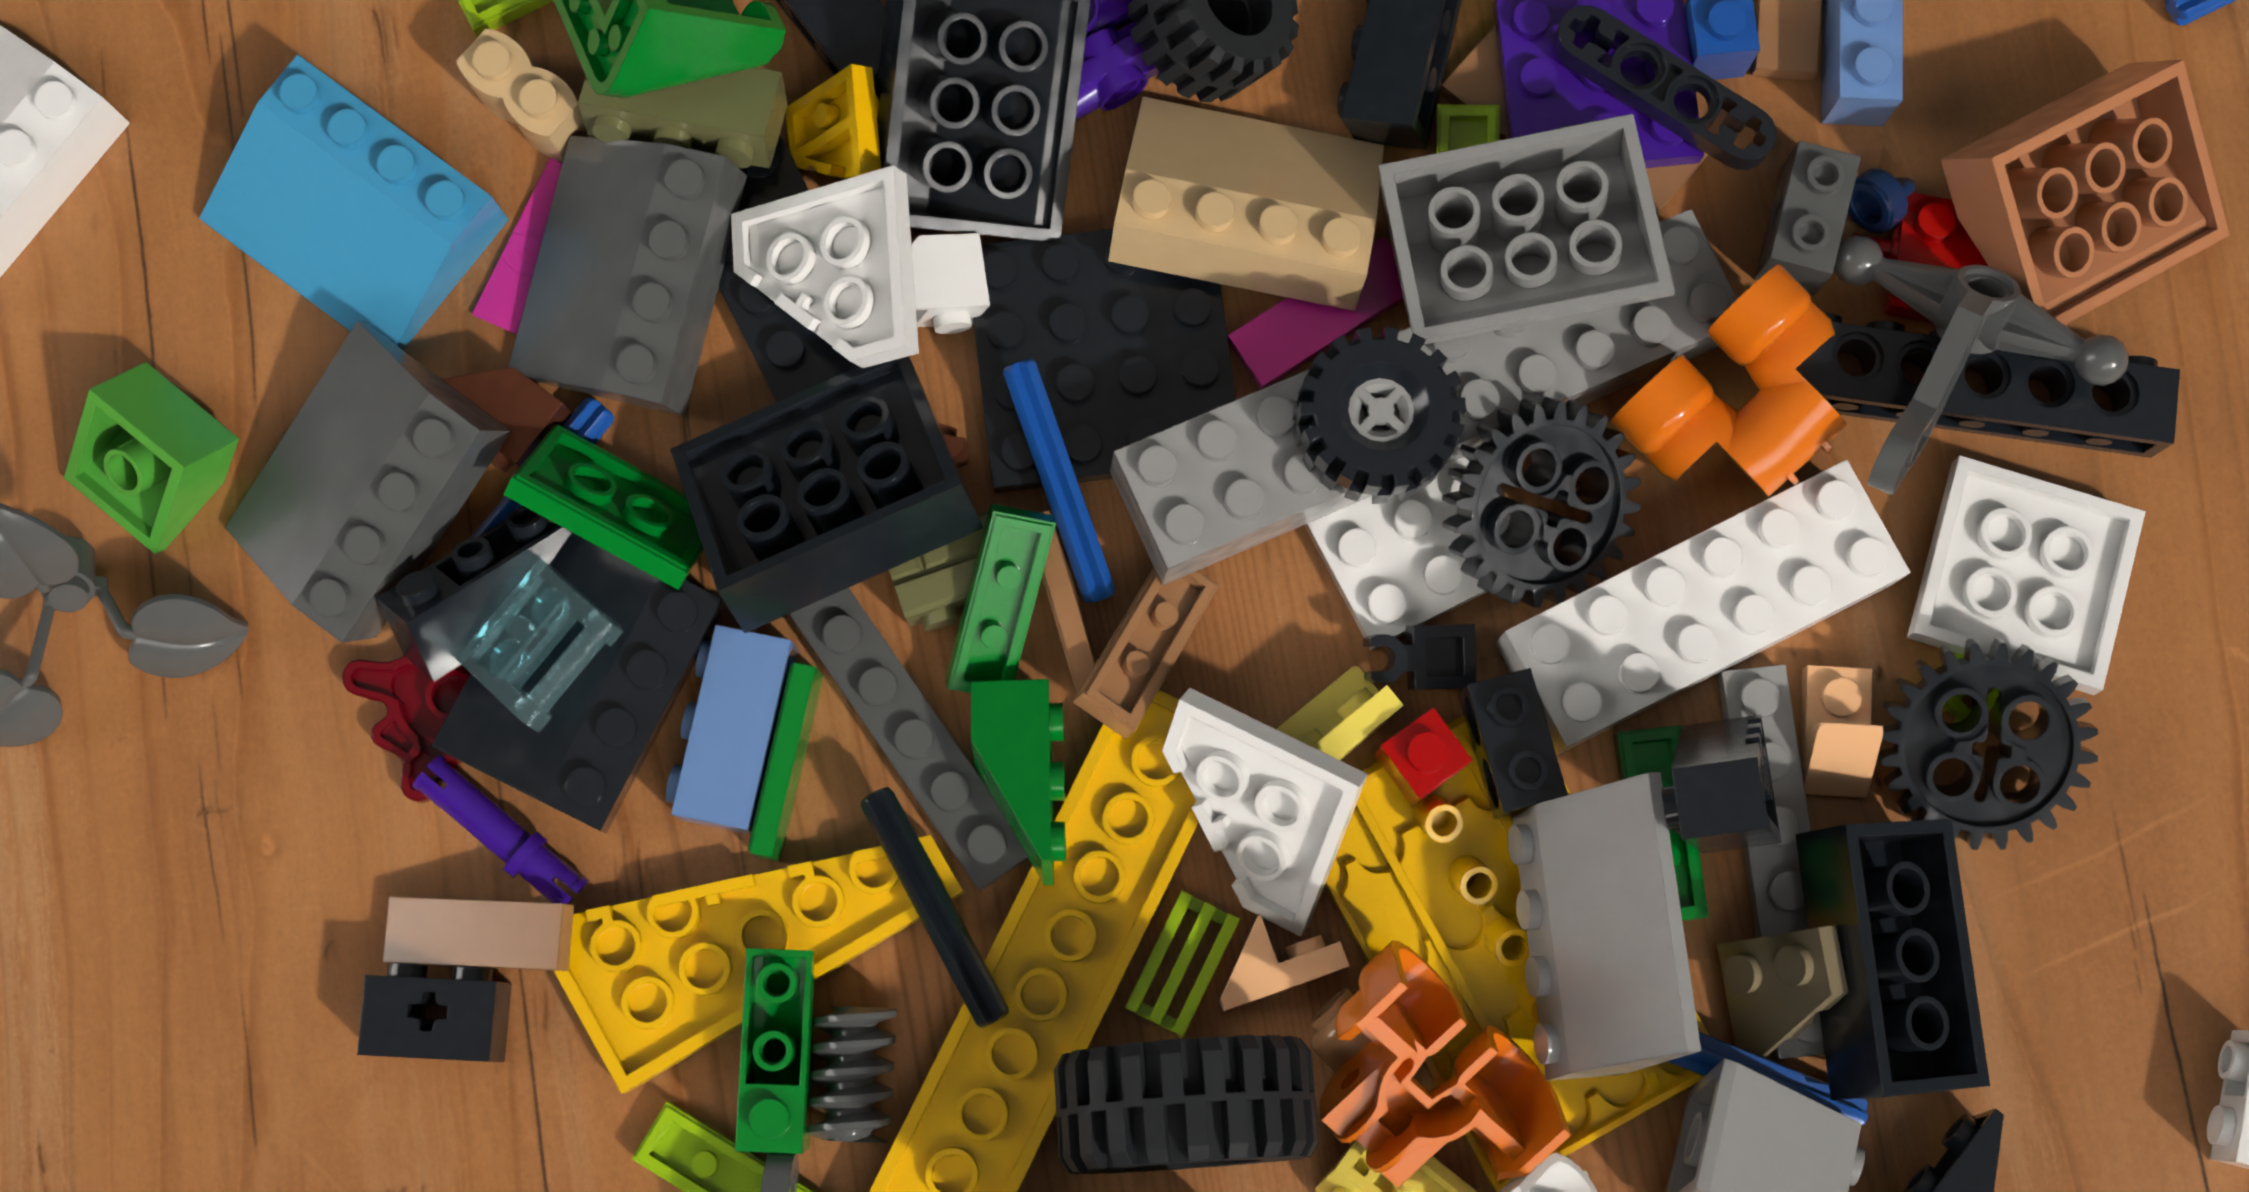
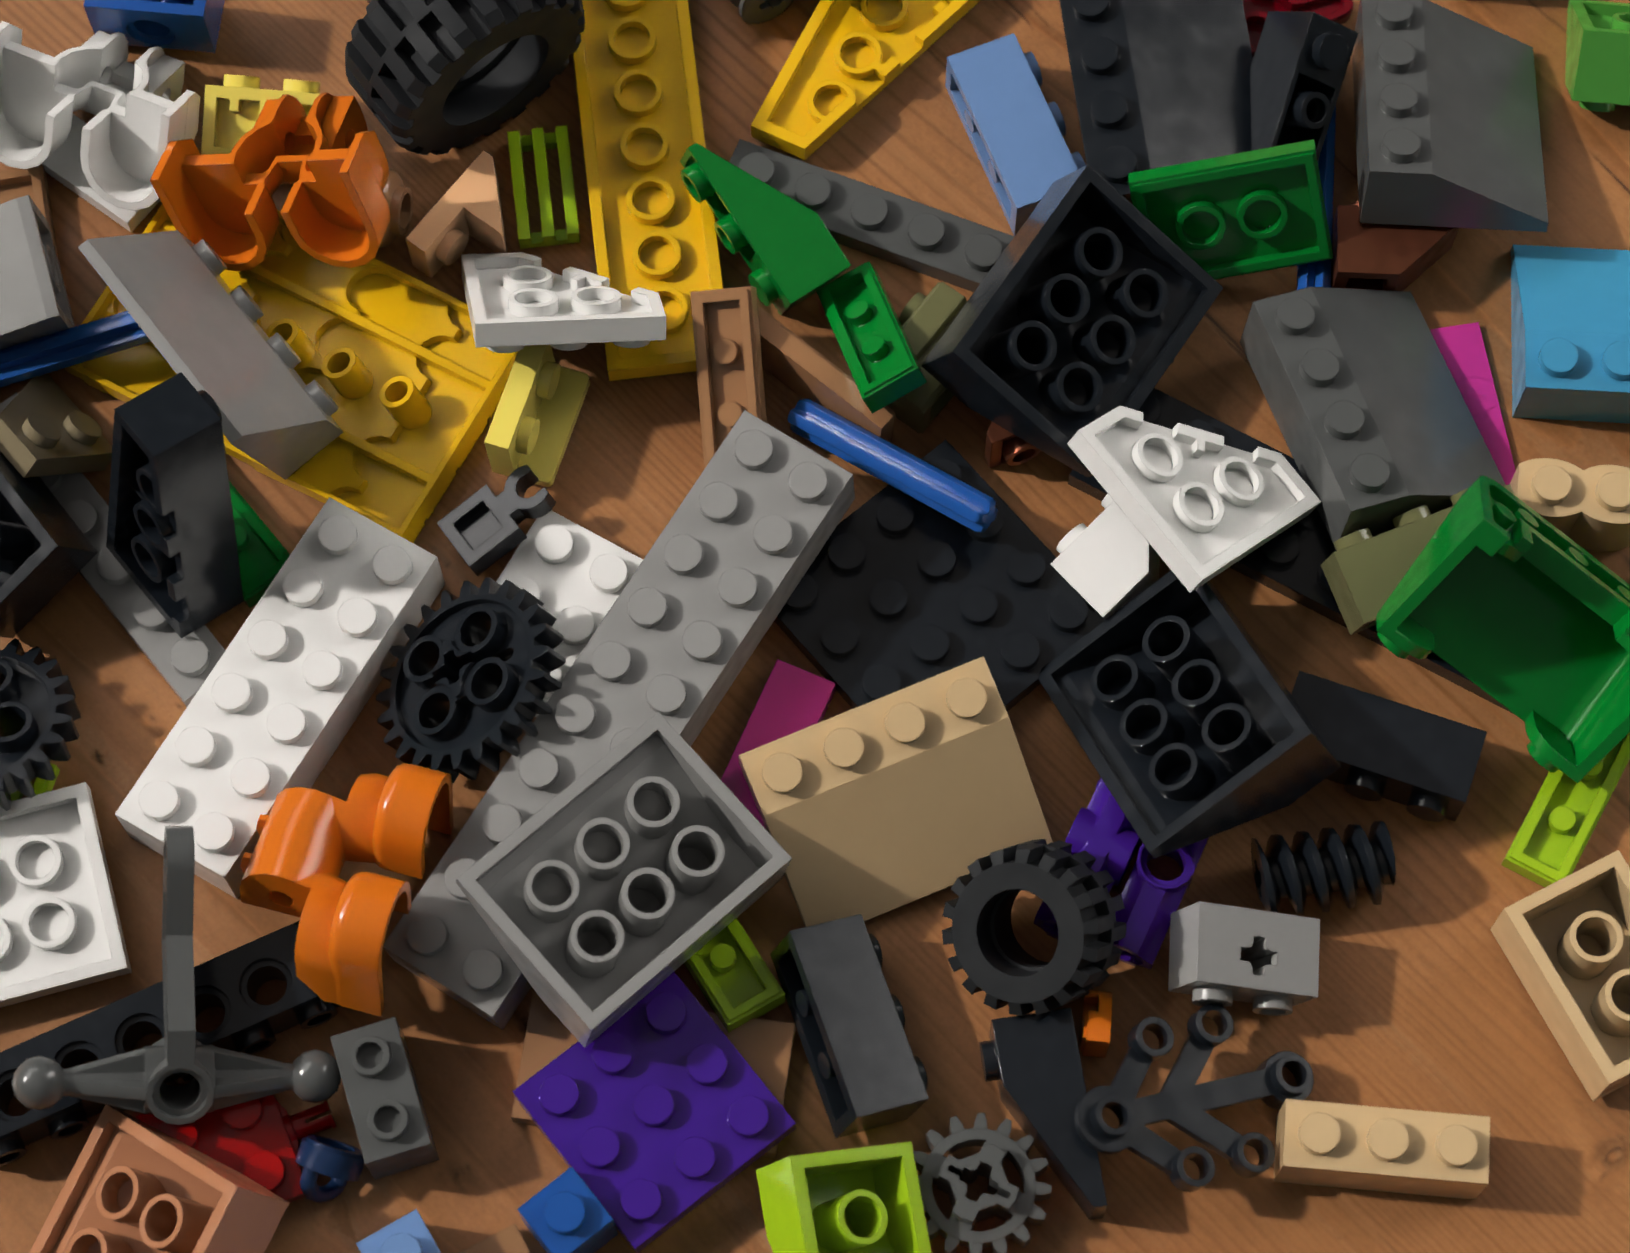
camera: 145 degrees right, 10 degrees down
(523, 636) = (1225, 77): clear light blue plate -> none
(785, 762) = (957, 135): green tile -> none
(837, 125) = (1290, 627): yellow wing -> none
(934, 907) = (763, 93): black axle -> none
(1396, 389) = (650, 588): black wheel -> none
(1422, 756) = (444, 422): red brick -> none
(1512, 742) = (376, 474): black brick -> none
(1670, 78) = (584, 1102): black beam -> none
(1837, 732) = (111, 681): light nougat slope -> none

